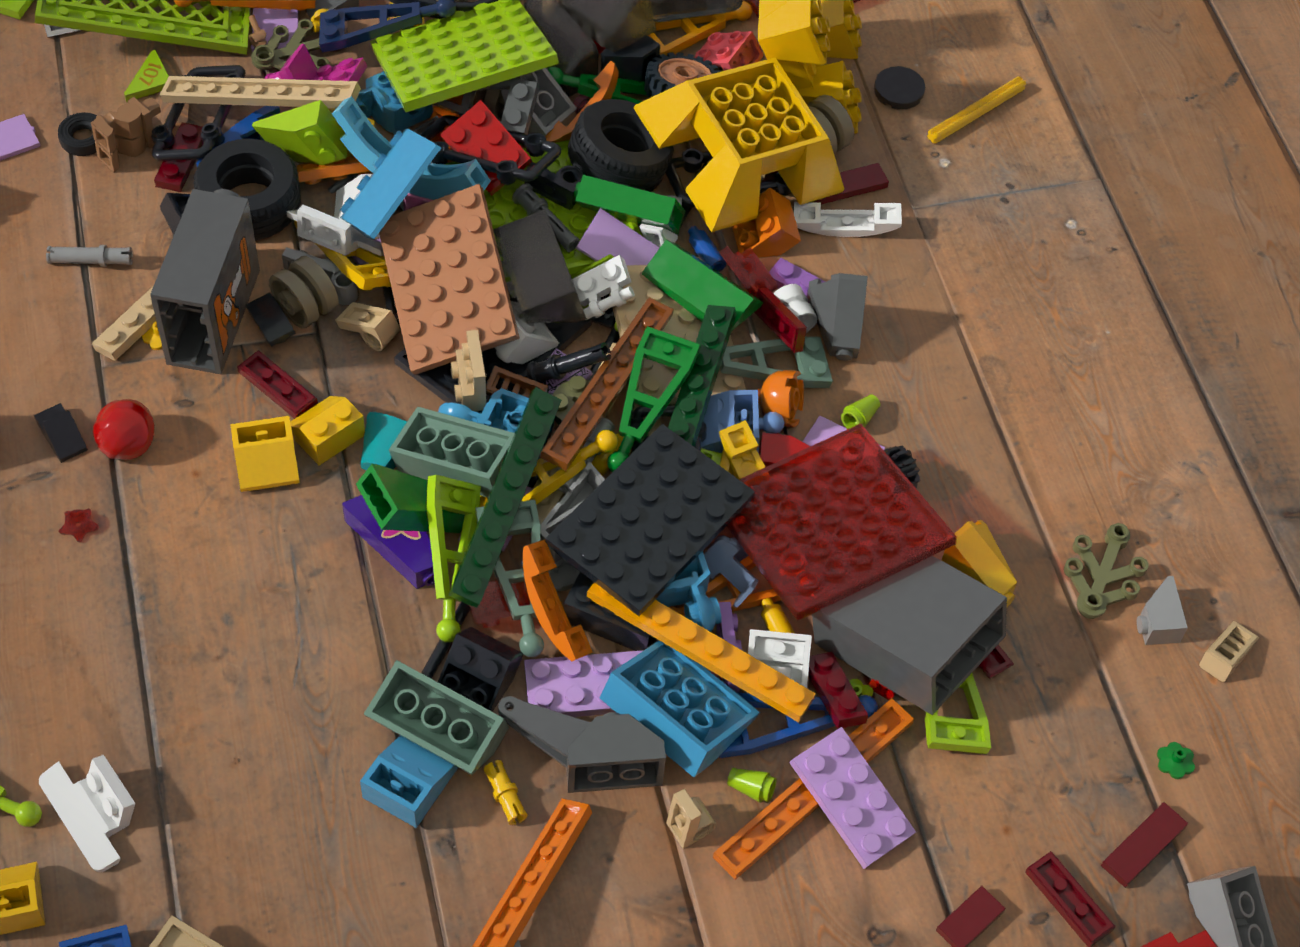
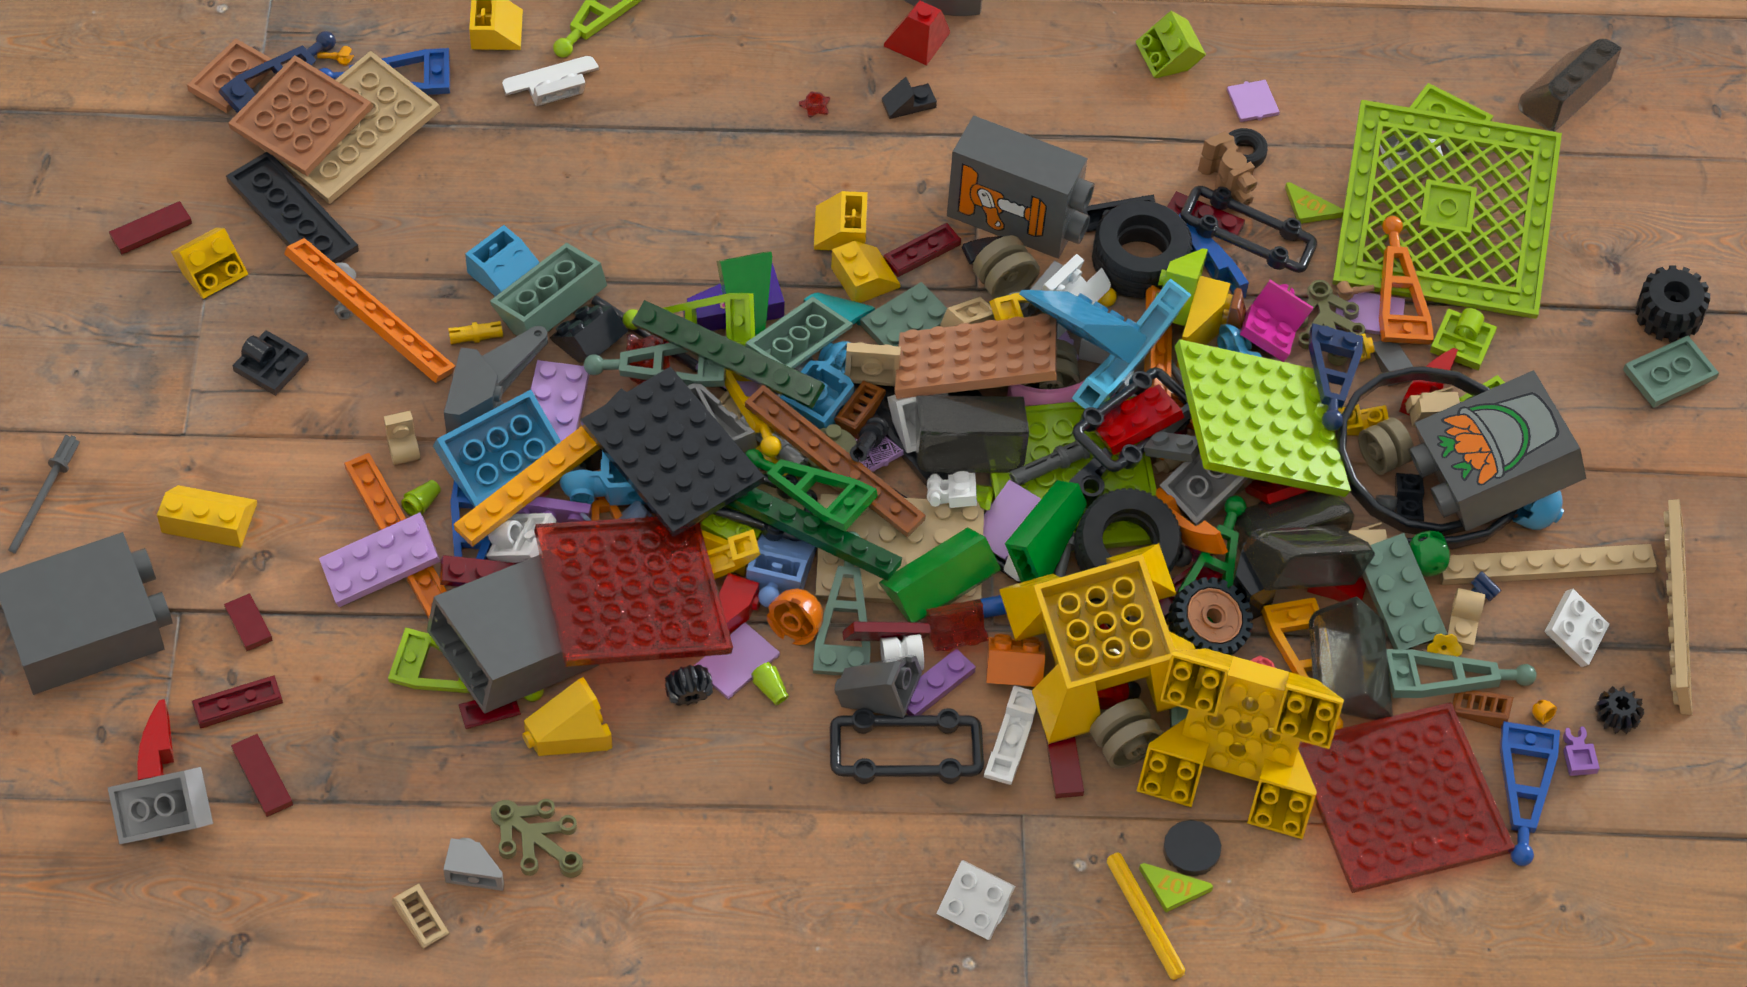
camera: 105 degrees right, 0 degrees up
(89, 255) = (1093, 143): light grey pin -> none
(124, 429) = (891, 133): red piece -> none
(257, 91) = (1239, 256): tan plate -> none
(377, 381) = (910, 310): none -> sand green plate
(547, 605) = (623, 375): orange slope -> none
(897, 262) = (865, 769): none -> black bar
(942, 95) = (1173, 888): none -> lime tile
(1022, 216) = (976, 900): none -> white plate
(1175, 760) = (331, 833): green plant -> none

